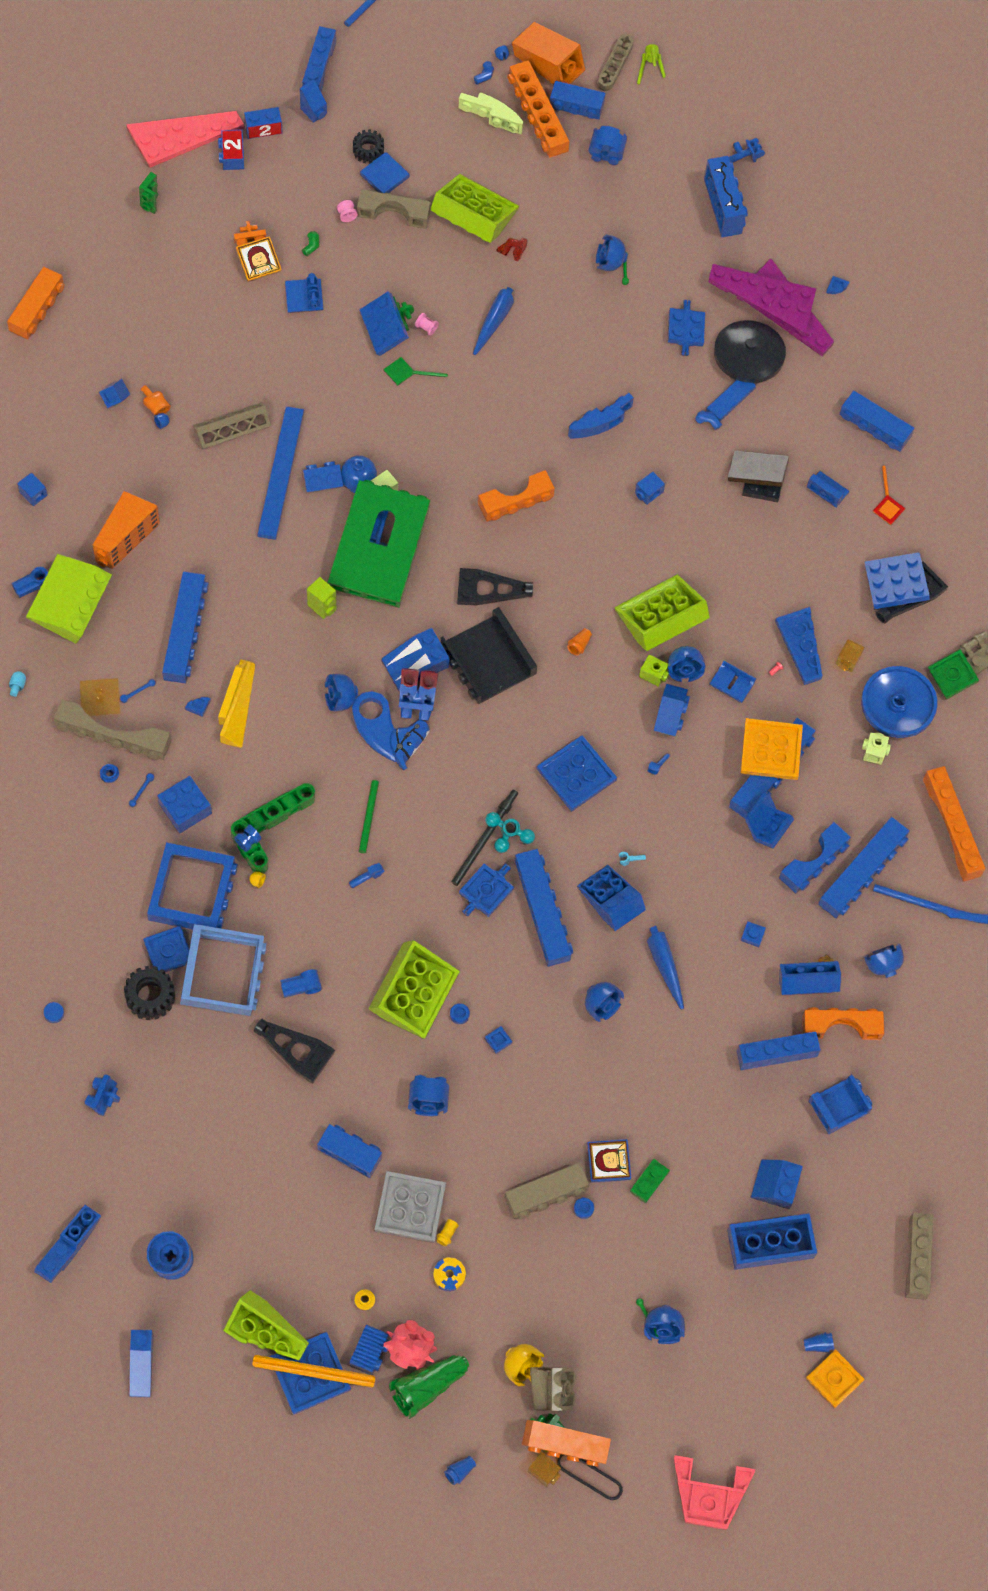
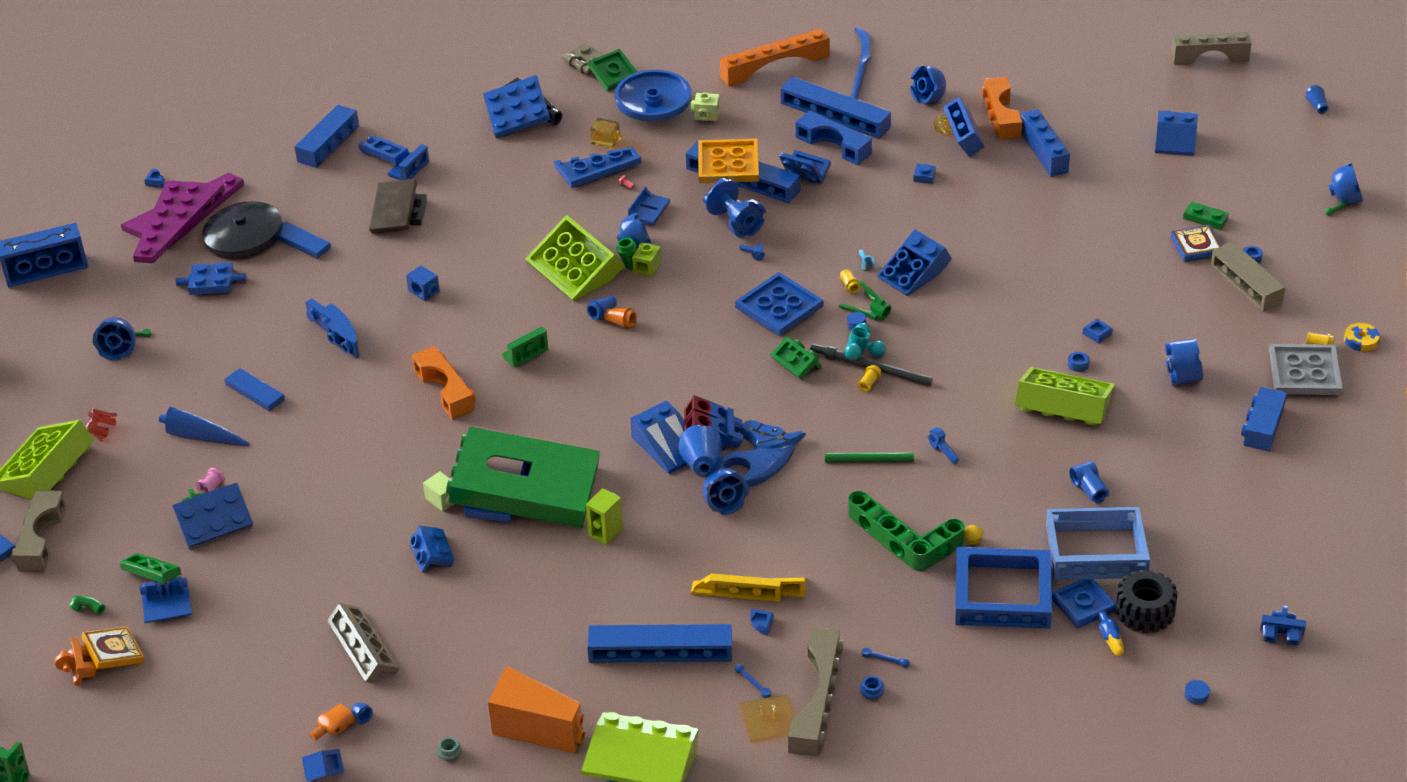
camera: 90 degrees left, 25 degrees down
(113, 472) = (449, 748): none -> sand green plate
(130, 961) = (1111, 633): none -> blue piece
(184, 804) = (898, 606): blue brick -> none
(247, 838) = (935, 529): blue wheel -> none
(280, 473) = (427, 589): blue tile -> none
(315, 1060) = (1173, 459): black plate -> none
(333, 281) = (150, 568): none -> green tile
(347, 211) = (40, 573): bright pink wheel -> none
(357, 469) = (424, 511): blue cylinder -> none
(376, 676) = (700, 448): none -> blue cone
(401, 371) = (275, 503): green piece -> none
(465, 832) = (872, 374): none -> yellow pin
(468, 587) = (567, 410): black plate -> none
(486, 890) = (933, 354): blue plate -> none
(489, 657) = (648, 379): black panel -> none
(500, 776) = (795, 358): none -> green bracket
(537, 358) = (254, 389): none -> blue tile
(542, 834) = (854, 319): none -> blue piece
(543, 908) = (941, 310): blue brick -> none
(547, 561) = (526, 347): none -> green bracket
(556, 855) = (878, 306): none -> green plant
(596, 627) = (597, 308): none -> blue cone
(598, 838) = (851, 283): none -> yellow pin
(603, 1000) = (1032, 254): blue cylinder -> none
(660, 650) = (626, 249): none -> green cone
(664, 960) = (970, 224): blue piece -> none
(672, 705) = (693, 234): blue brick -> none
(702, 751) = (745, 217): none -> blue piece
(704, 416) = (329, 250): blue arm -> none
(772, 1241) = (1237, 128): blue brick -> none
(835, 1378) = (1346, 91): light orange tile -> none
(841, 1104) = (1082, 106): blue panel -> none
(848, 467) = (384, 149): none -> blue hinge
(888, 508) = (428, 126): piece -> none

